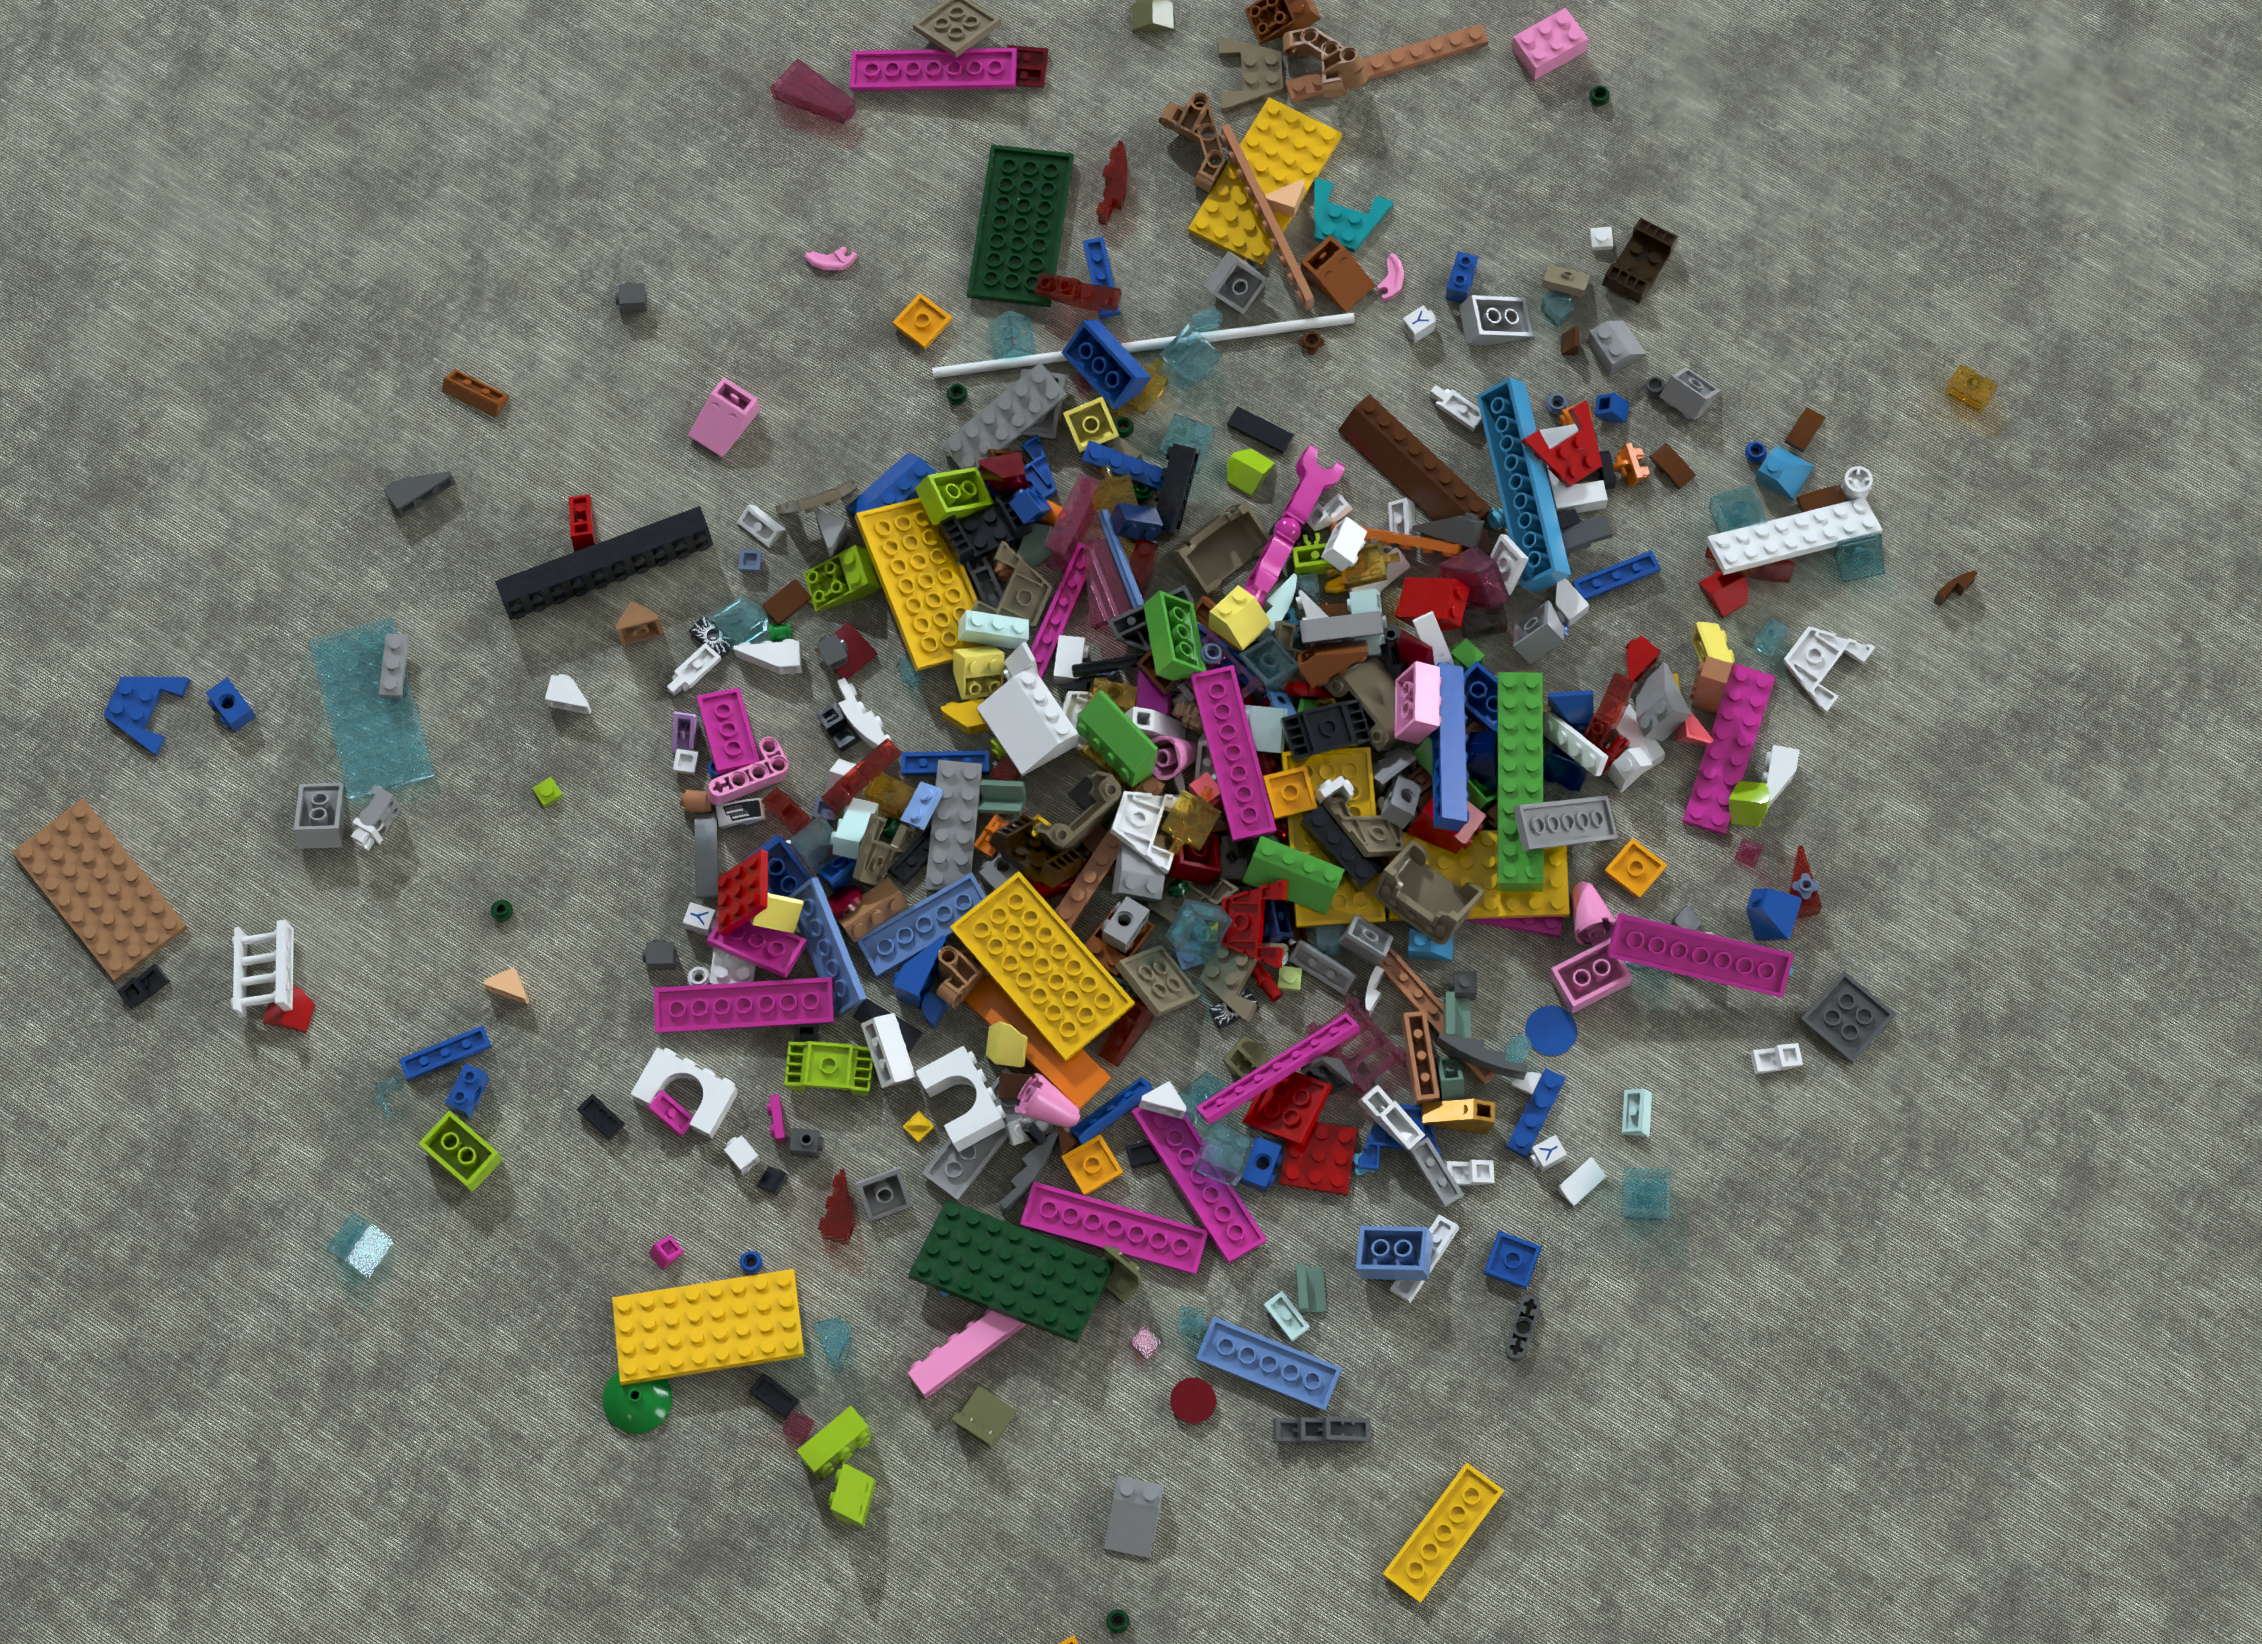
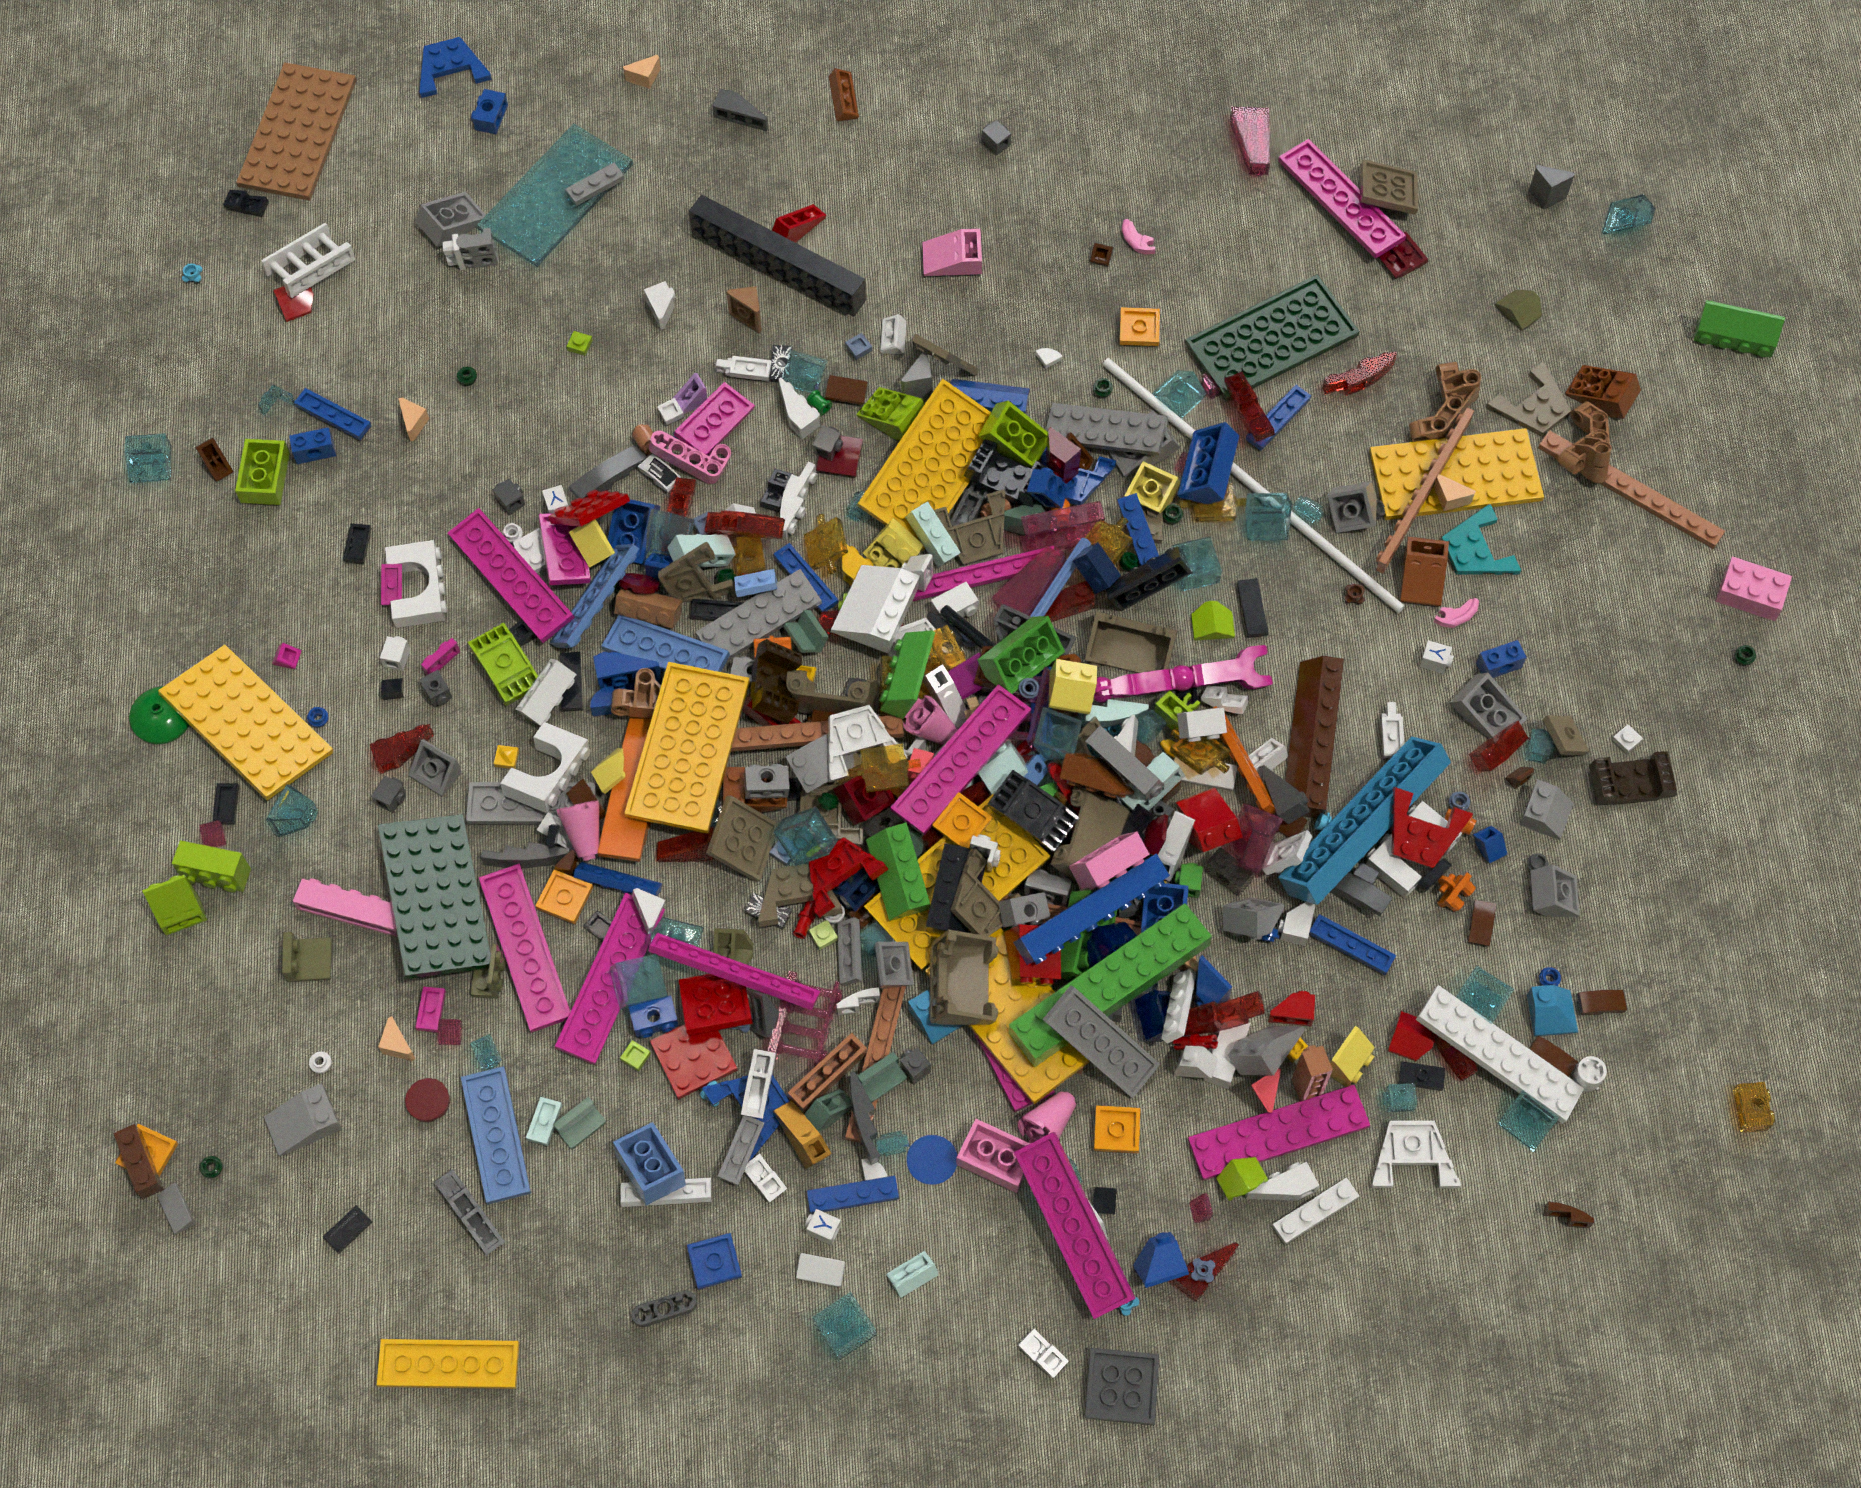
camera: 50 degrees right, 5 degrees down
(180, 1077) = (189, 269): none -> medium azure plate
(303, 544) = (643, 71): none -> light nougat slope
(410, 1187) = (214, 459): none -> reddish brown slope
(823, 299) = (1101, 254): none -> reddish brown slope
(879, 1247) = (389, 794): none -> dark grey brick
(889, 415) = (1048, 356): none -> white tile
(928, 723) = (825, 543): none -> clear yellow plate
(1027, 309) = (1210, 386): none -> clear pink slope
(1090, 1475) = (324, 1067): none -> white plate
(1112, 1344) = (430, 1009): none -> dark pink plate
(1121, 1392) = (393, 1042): none -> light nougat slope
(1260, 1542) = (347, 1229): none -> black tile
(1284, 1203) = (635, 1055): none -> lime plate
(1536, 339) = (1498, 748): none -> clear red slope
(1763, 608) = (1422, 1075): none -> black plate
(1813, 769) = (1315, 1211): none -> white plate

